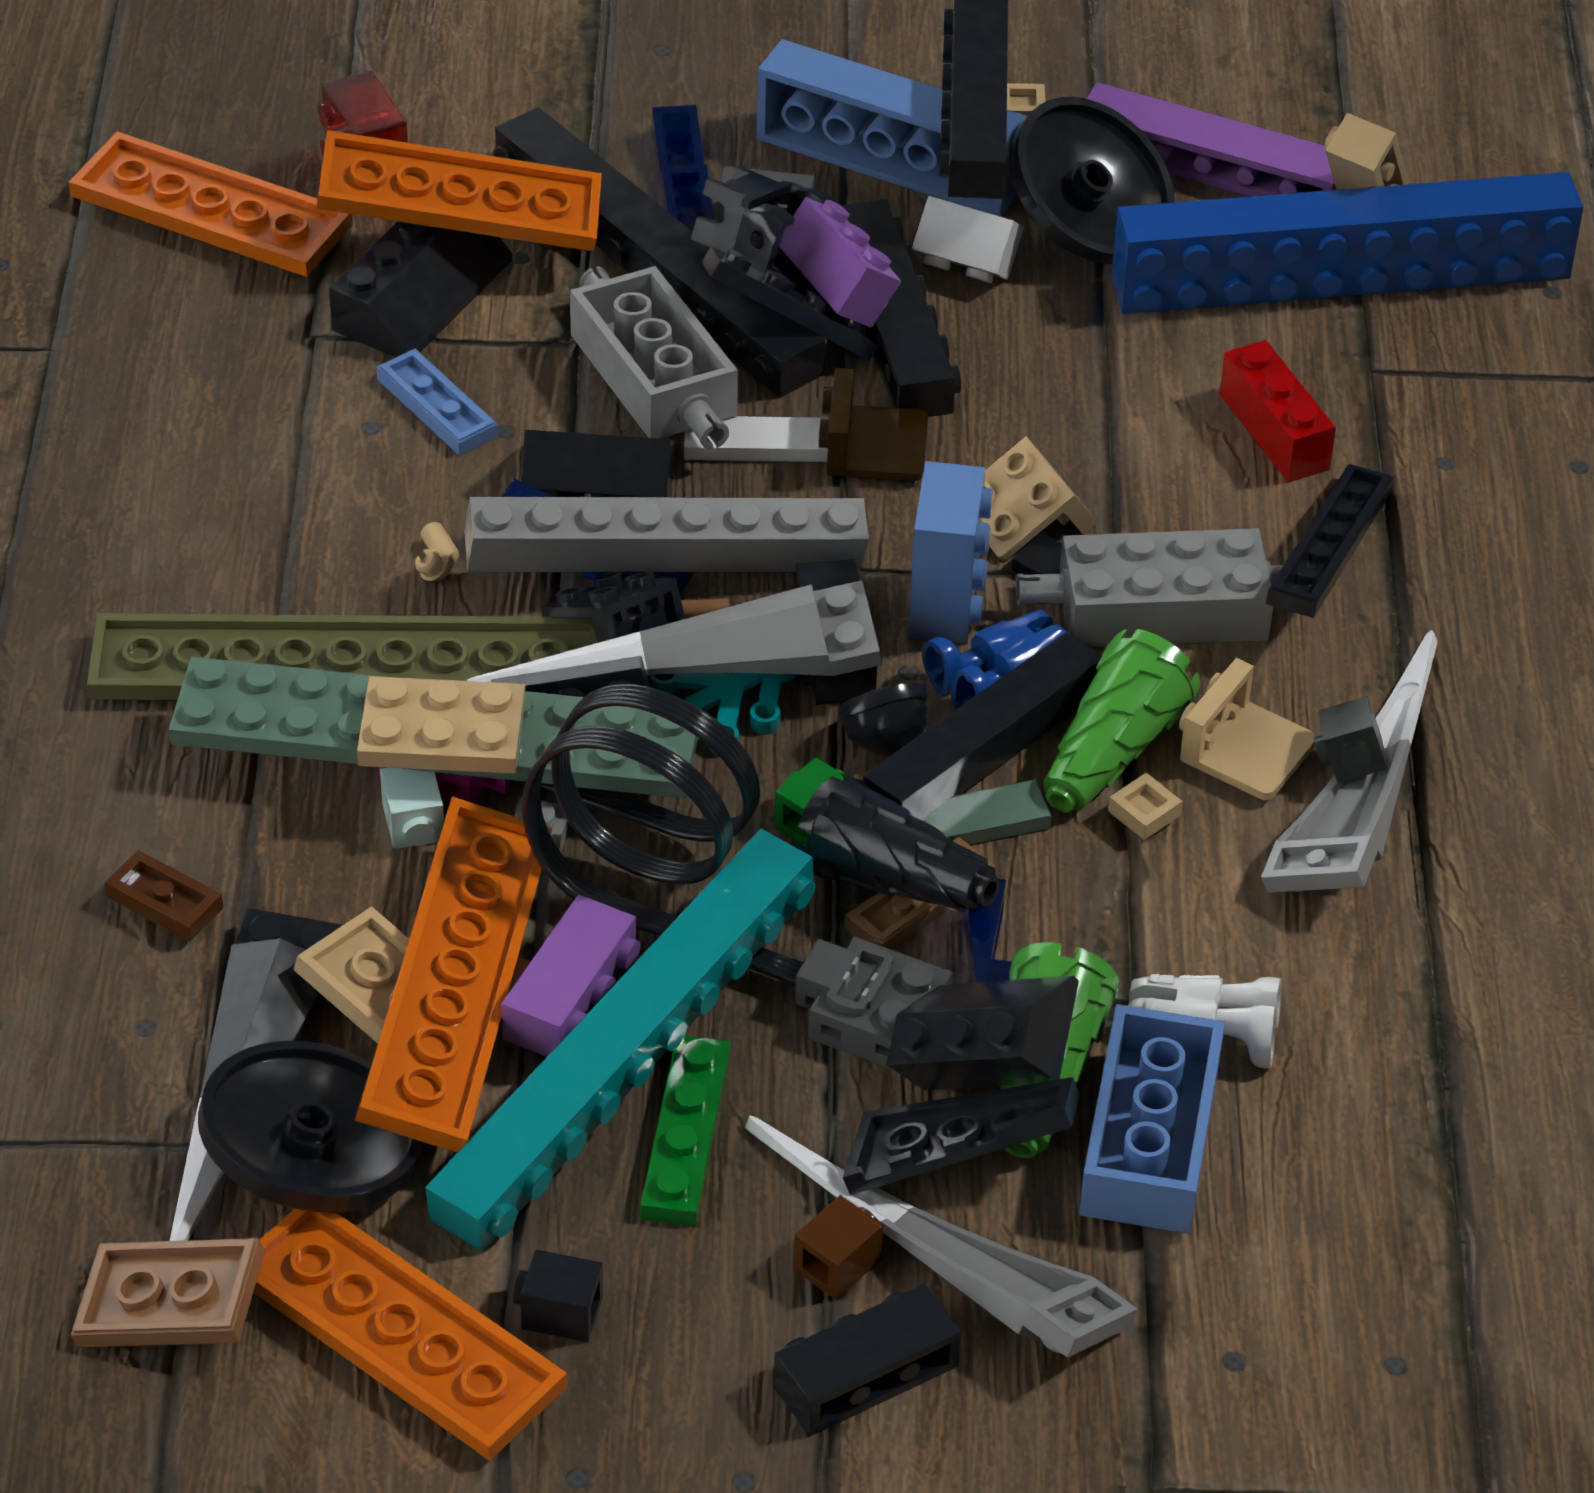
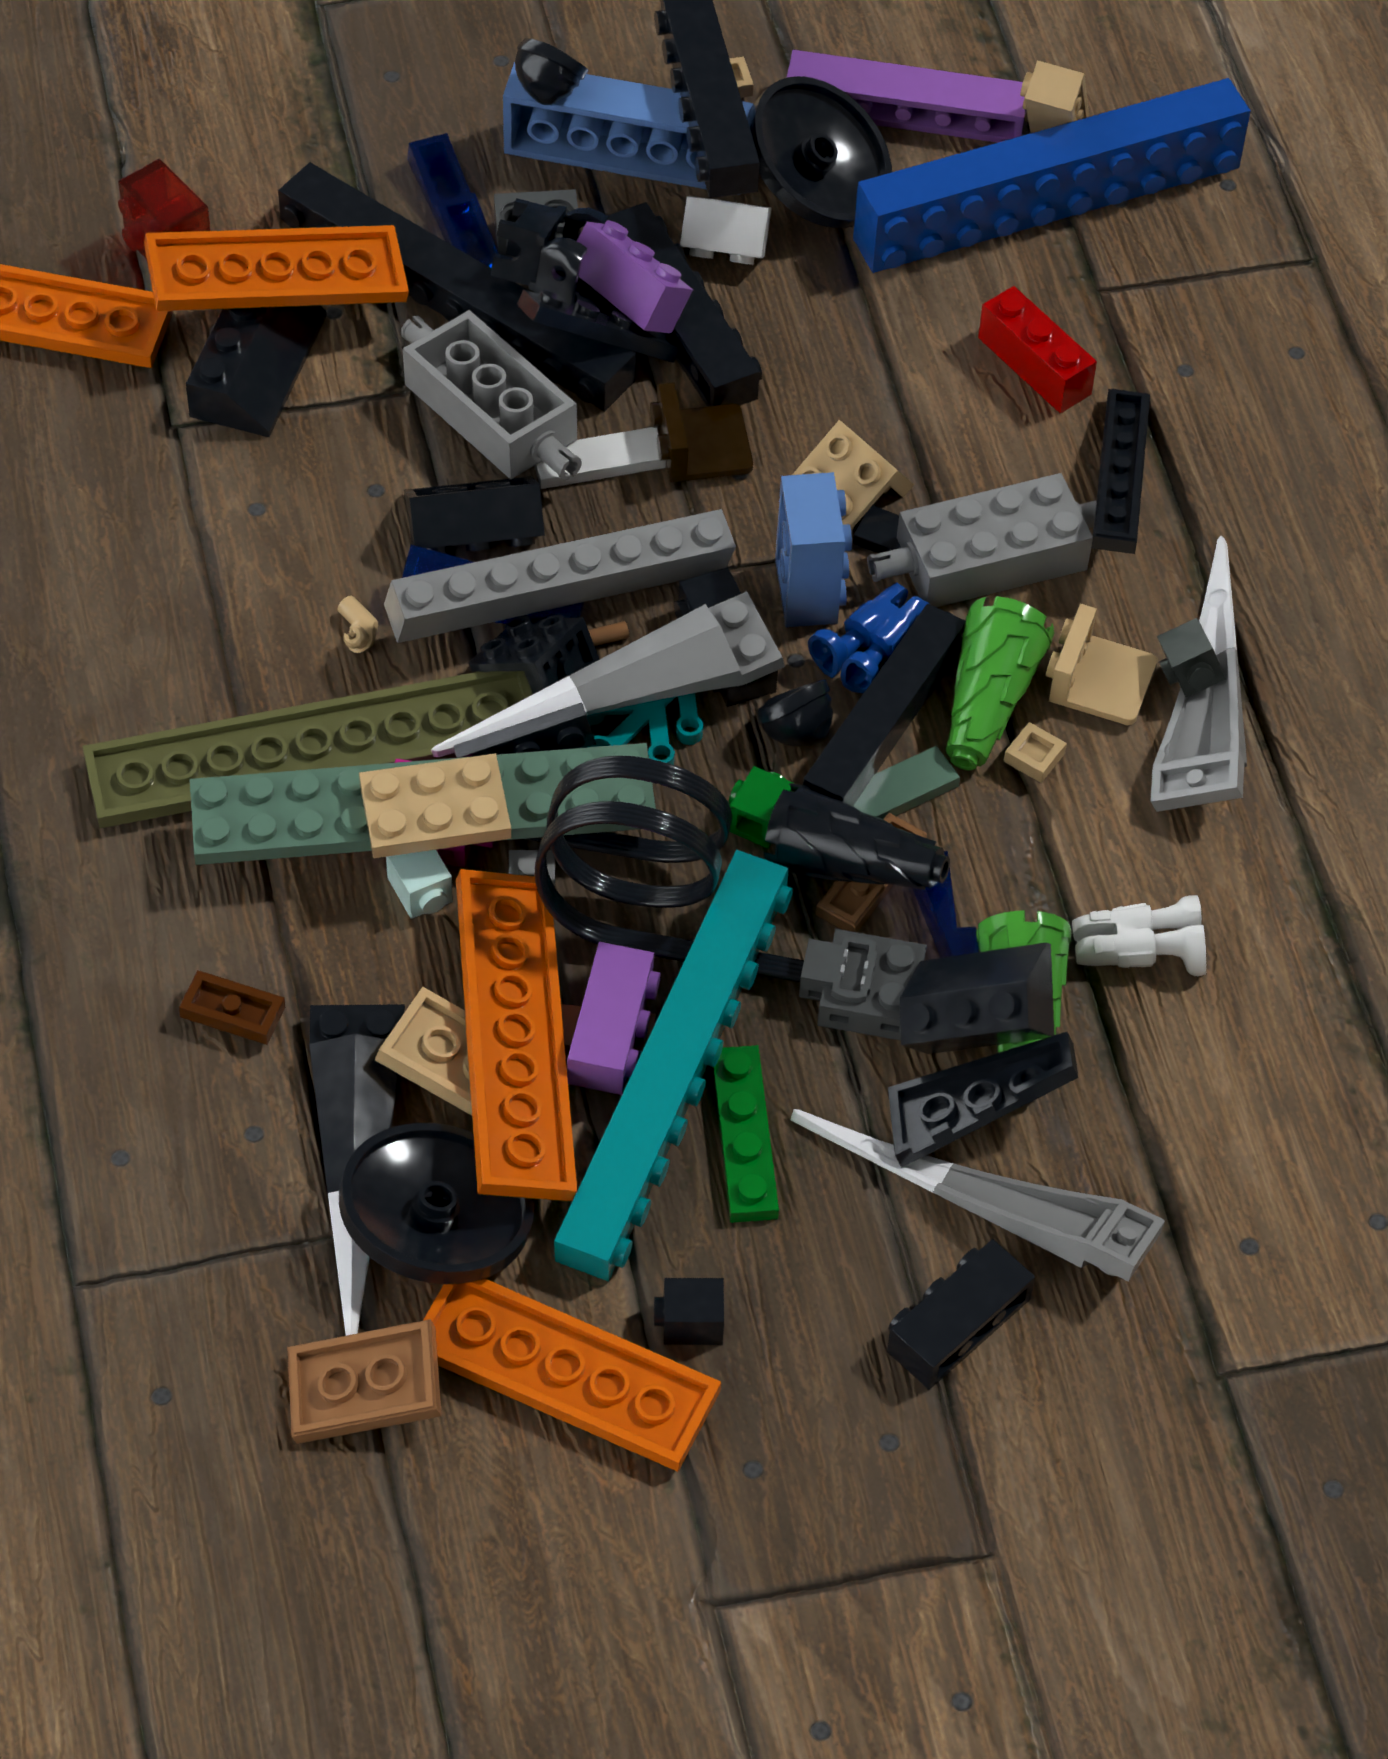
camera: 15 degrees left, 10 degrees up
(437, 401) = (308, 473): medium blue tile -> none
(808, 46) = (547, 71): none -> black hat
(838, 1247) = (906, 1216): reddish brown brick -> none
(1152, 1119) = (1130, 1046): medium blue brick -> none

